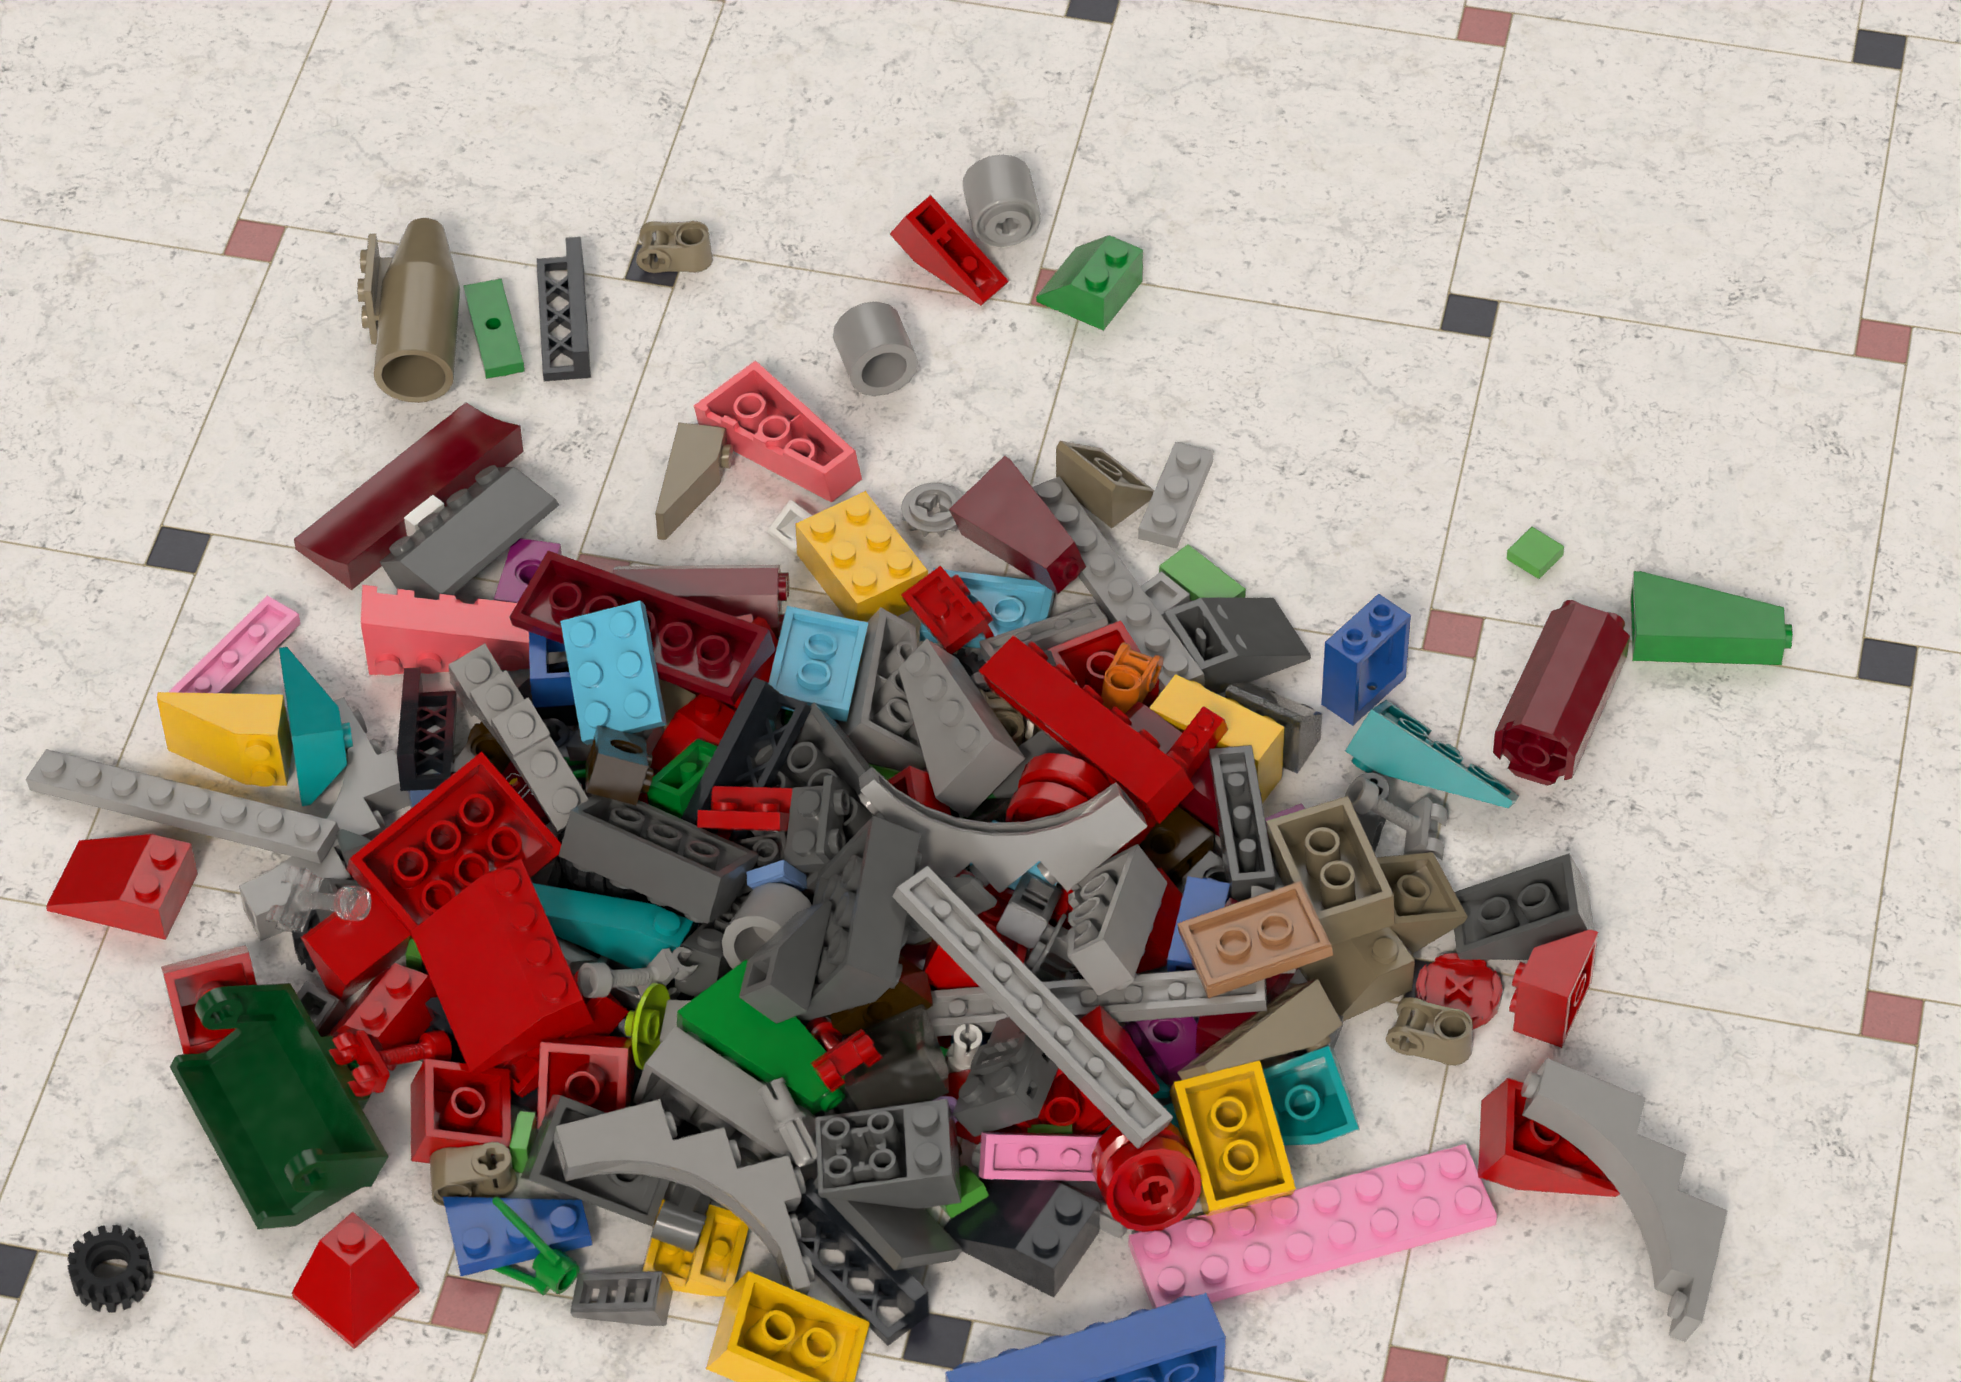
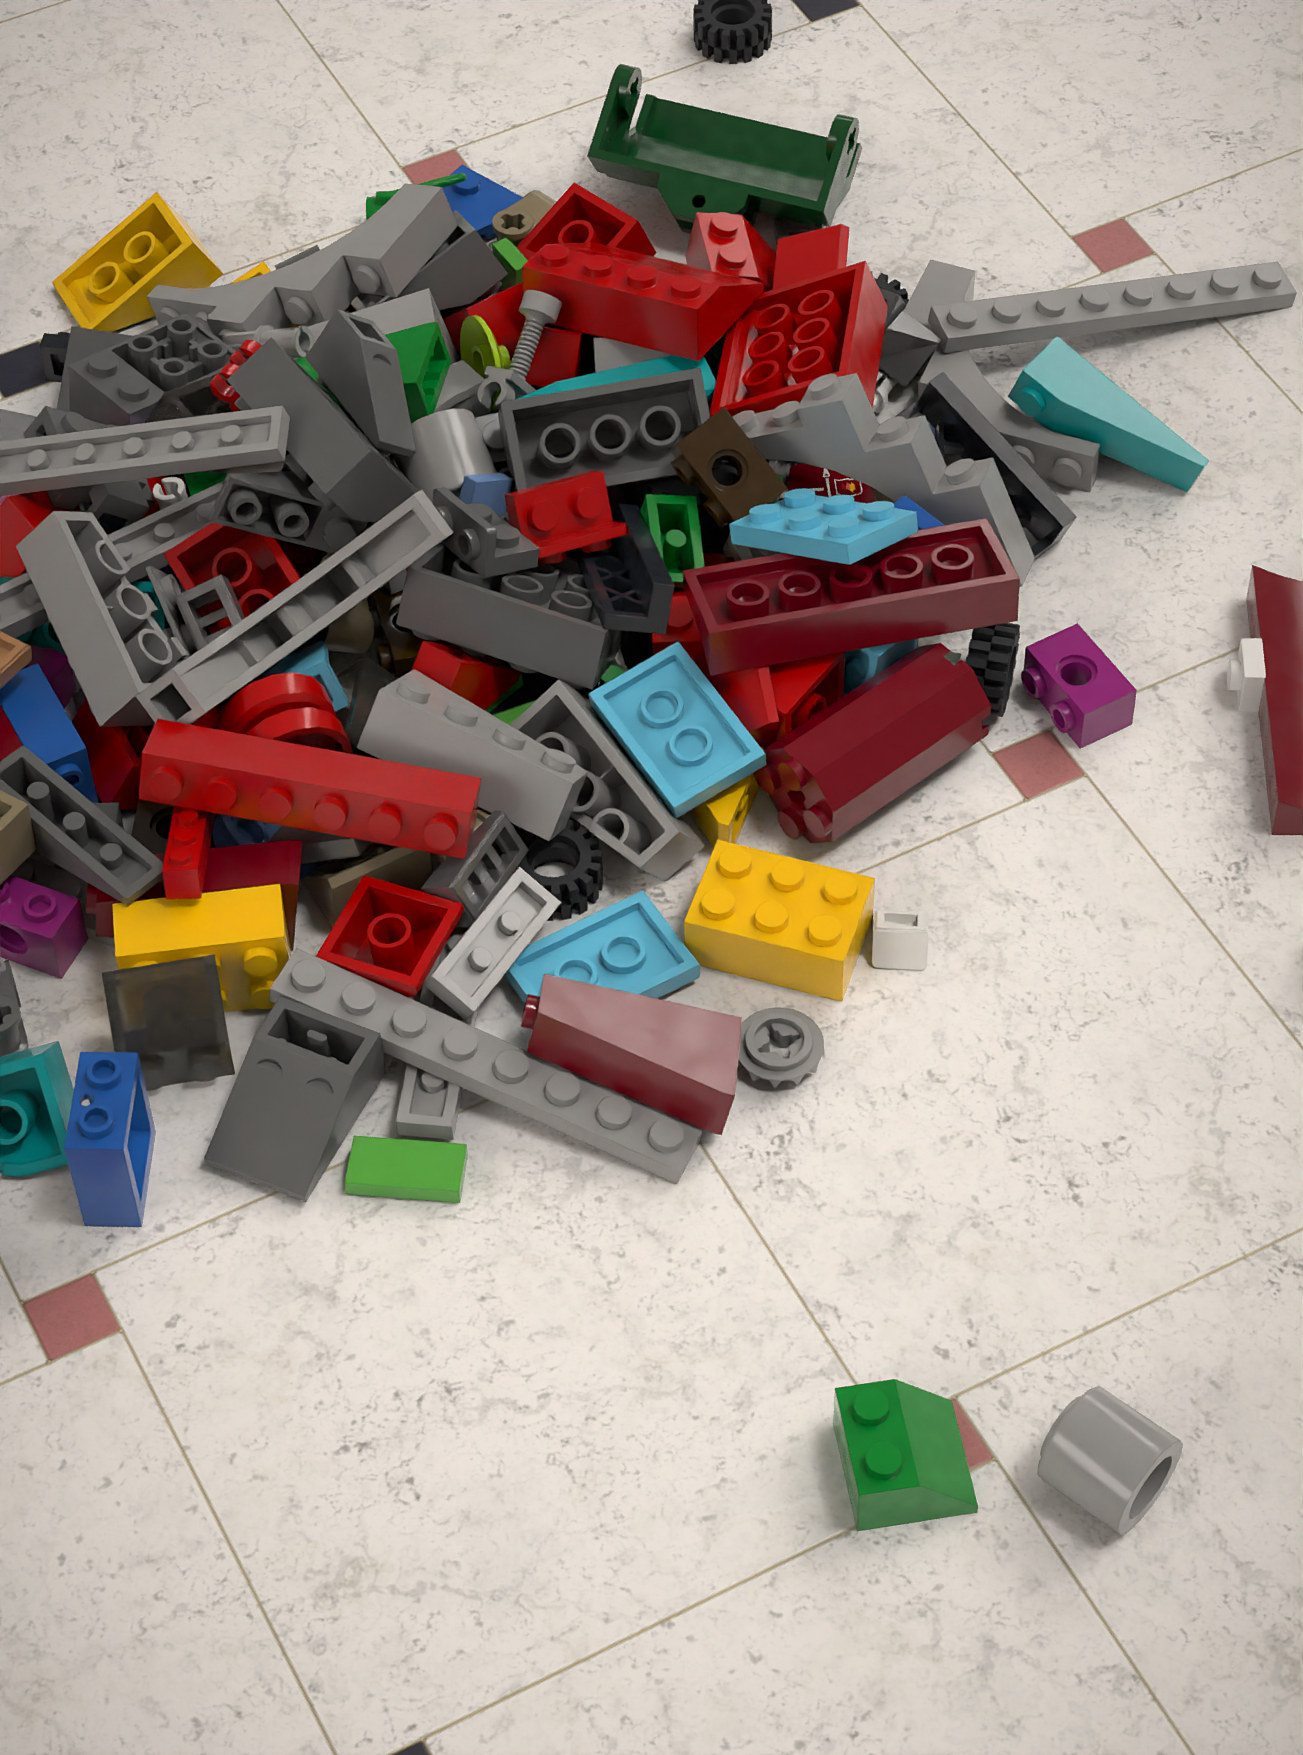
camera: 140 degrees right, 0 degrees up
(127, 883) = (1081, 242): red slope -> none
(193, 978) = (901, 211): red slope -> none
(230, 734) = (1159, 354): yellow slope -> none
(241, 649) = (1250, 453): bright pink plate -> none
(349, 902) = (892, 263): clear bar -> none
(354, 1281) = (535, 127): red slope -> none
(373, 1064) = (668, 194): red bar -> none
(433, 633) = (1102, 563): coral wedge -> none
(467, 533) = (1179, 666): dark grey slope -> none
(649, 1305) = (295, 233): flat silver slope -> none
(691, 473) = (1071, 907): dark tan slope -> none
(780, 433) = (1016, 990): coral wedge -> none
(875, 348) = (1034, 1155): light grey piece -> none
(946, 611) = (615, 901): red bracket -> none
(947, 251) = (1129, 1355): red slope -> none
(1100, 482) = (625, 1194): dark tan slope -> none
(1130, 678) = (332, 908): orange piece -> none
(1175, 495) = (535, 1257): light grey plate -> none
(1535, 552) = (43, 1476): bright green tile -> none

